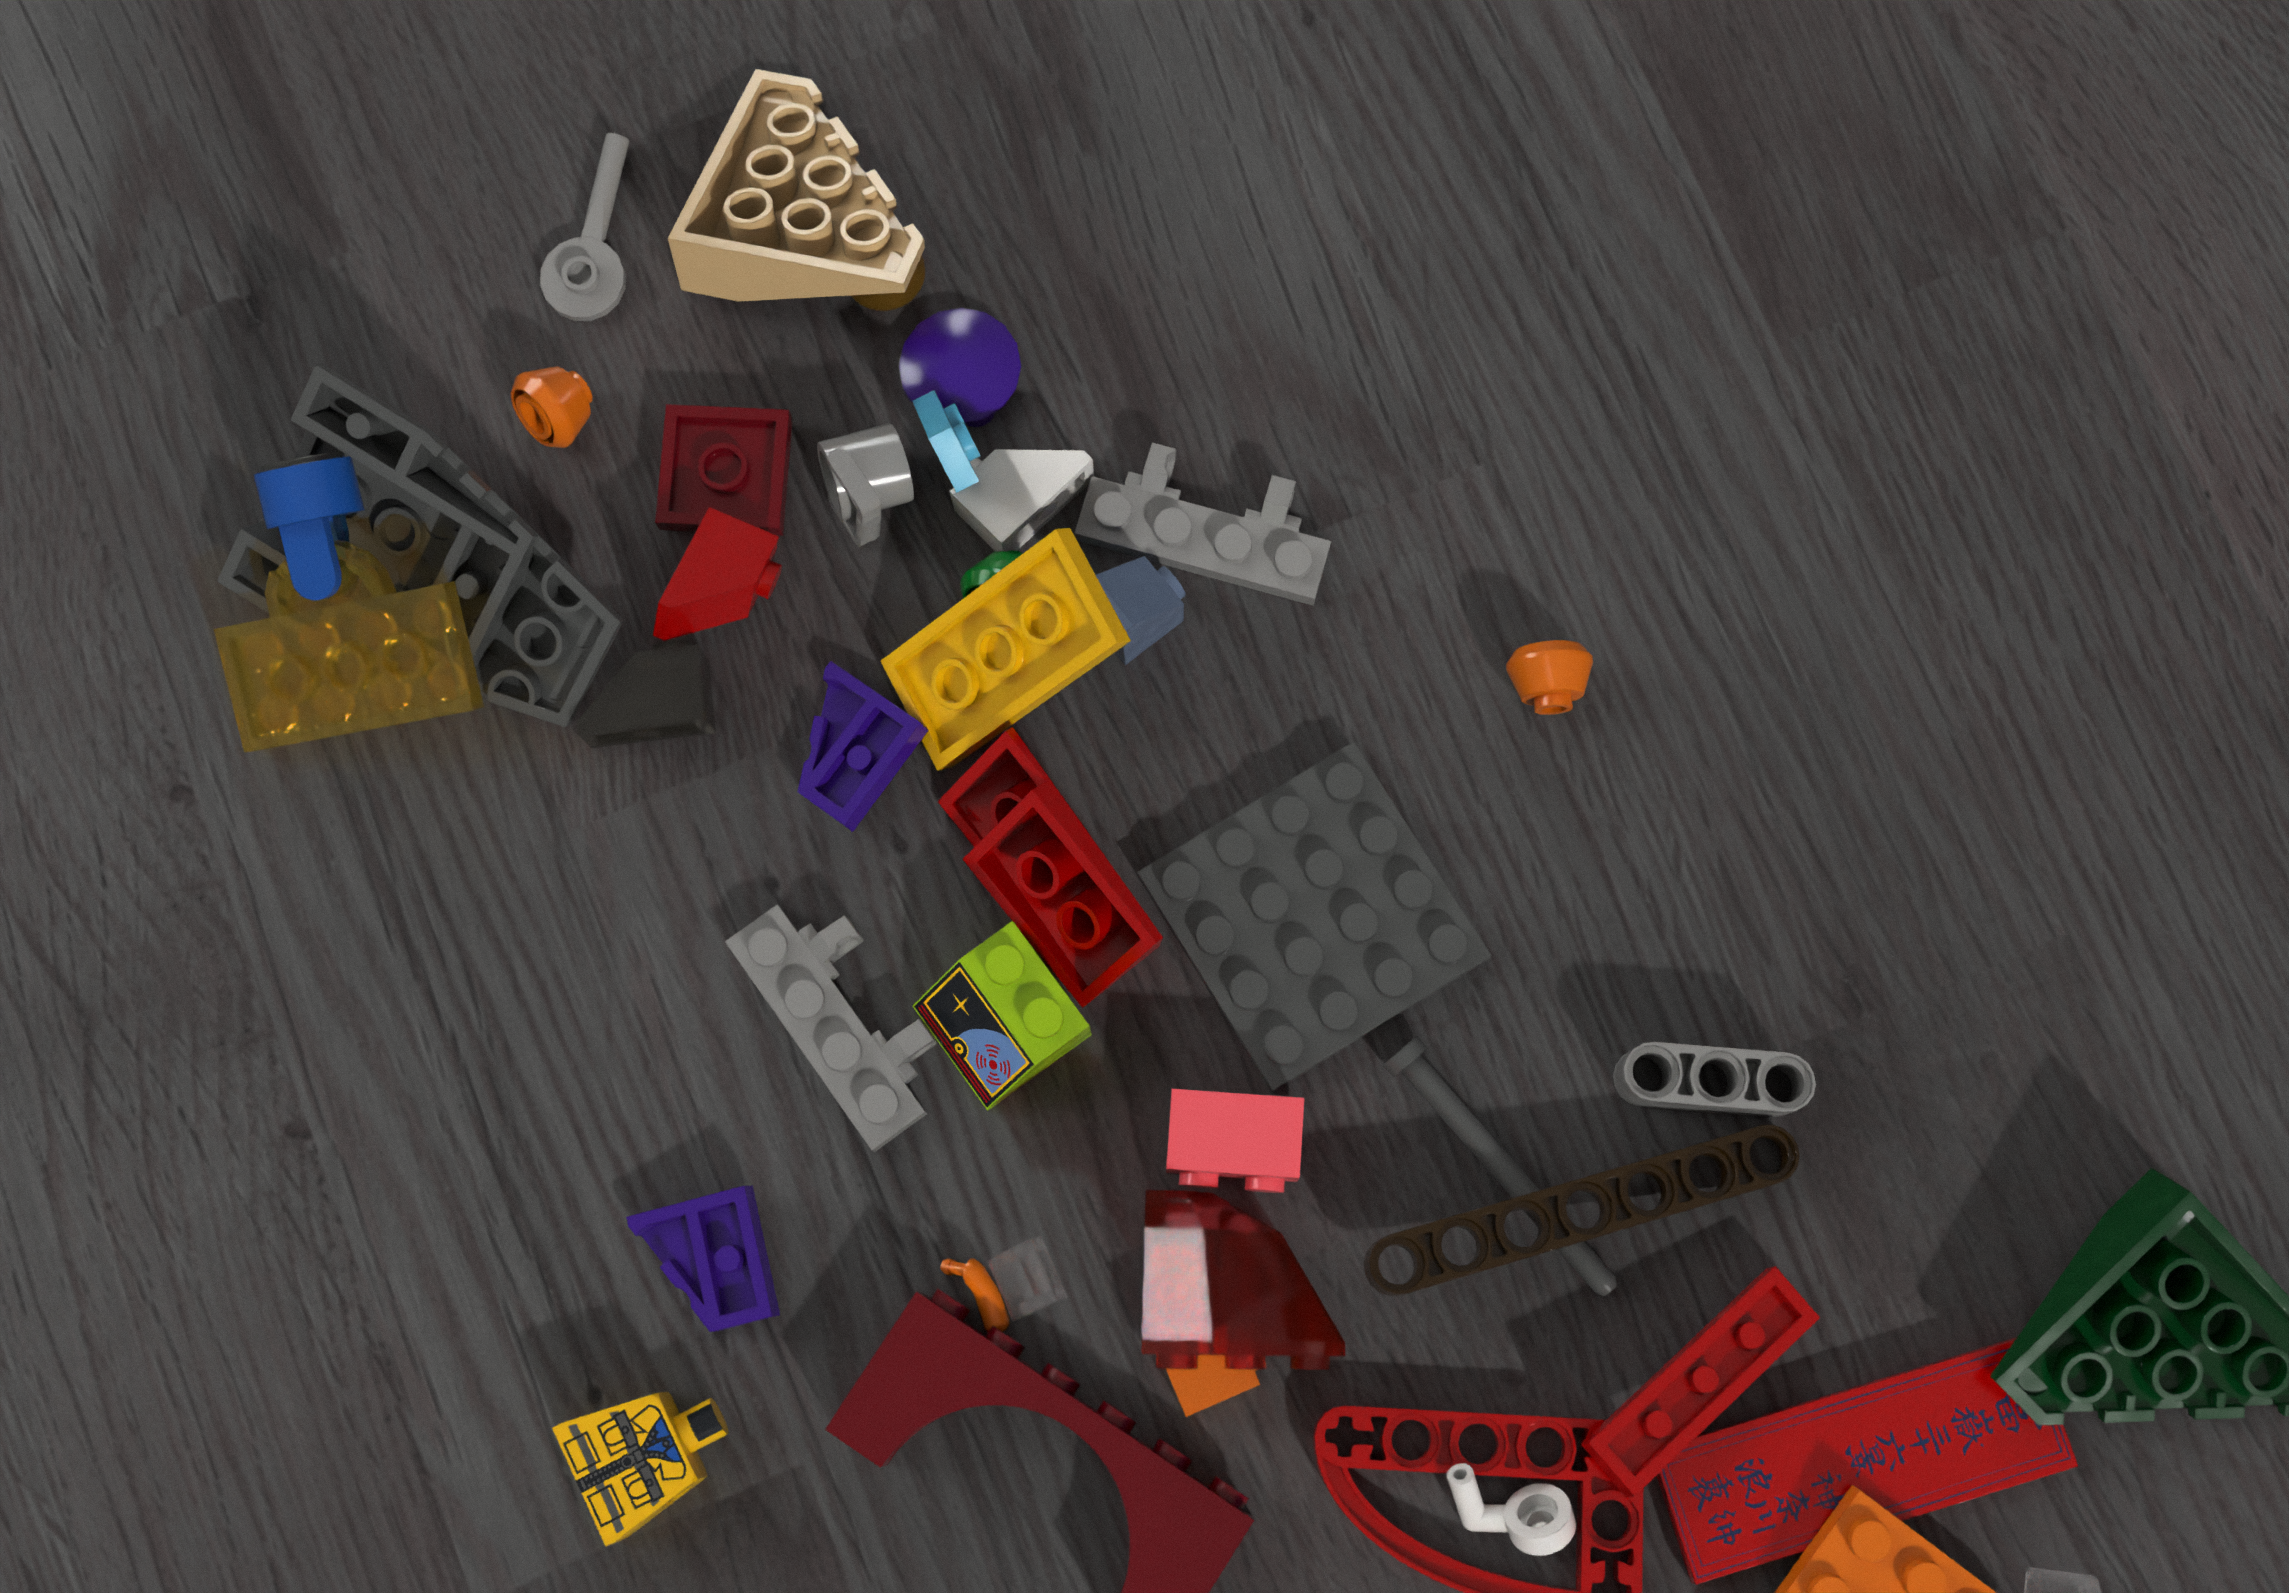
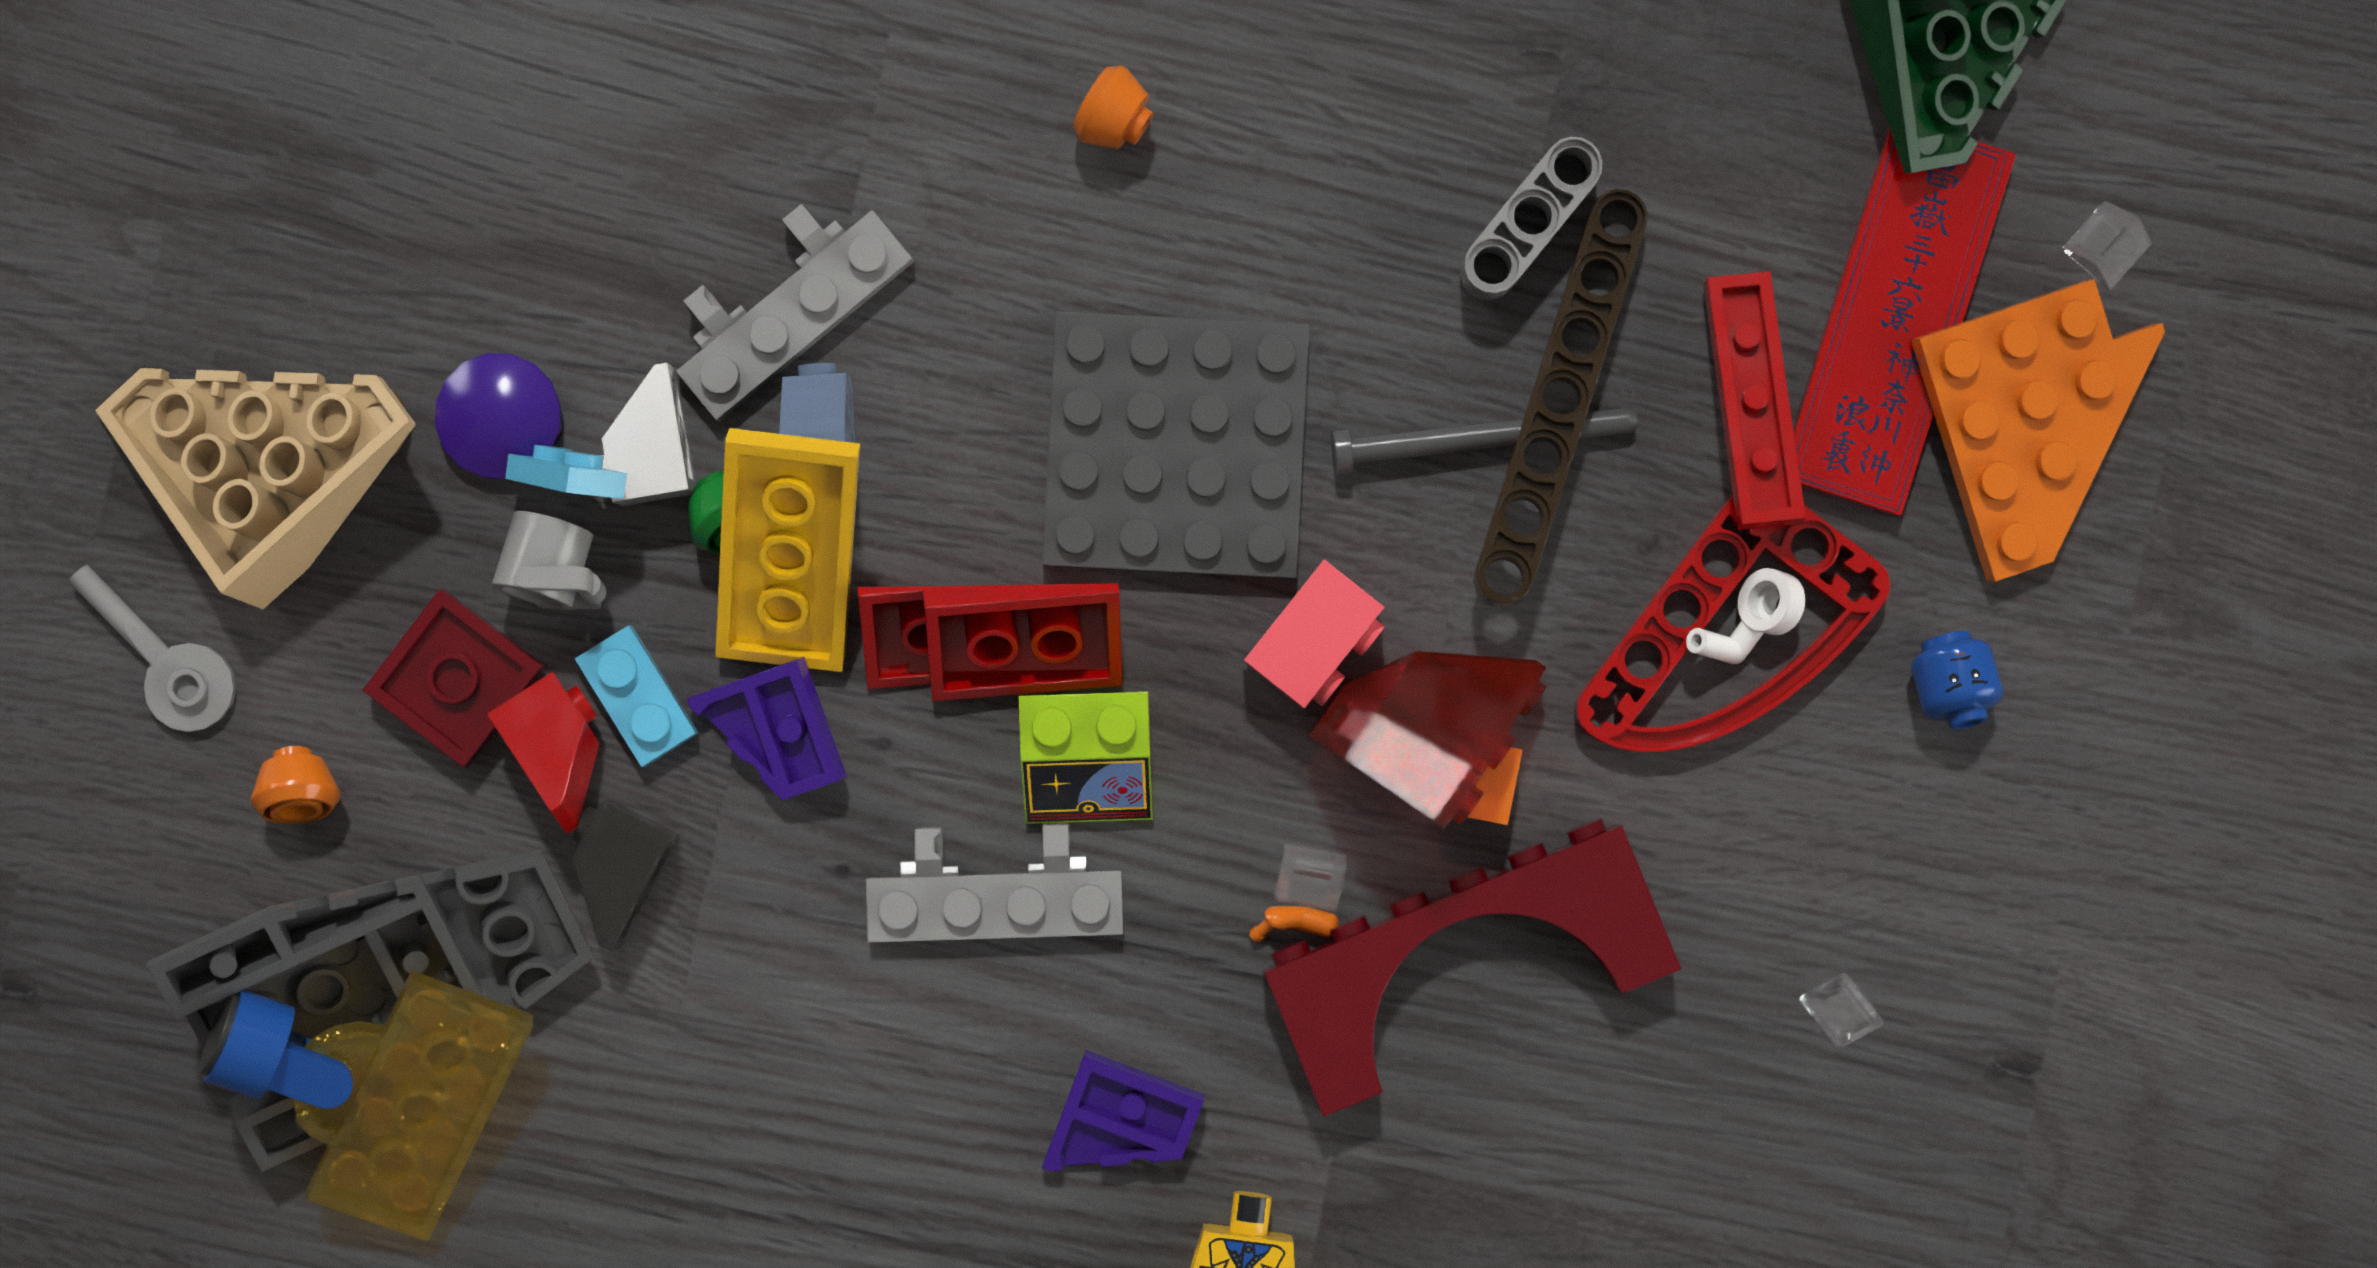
camera: 60 degrees left, 10 degrees up
(806, 622) = (636, 696): none -> medium azure plate

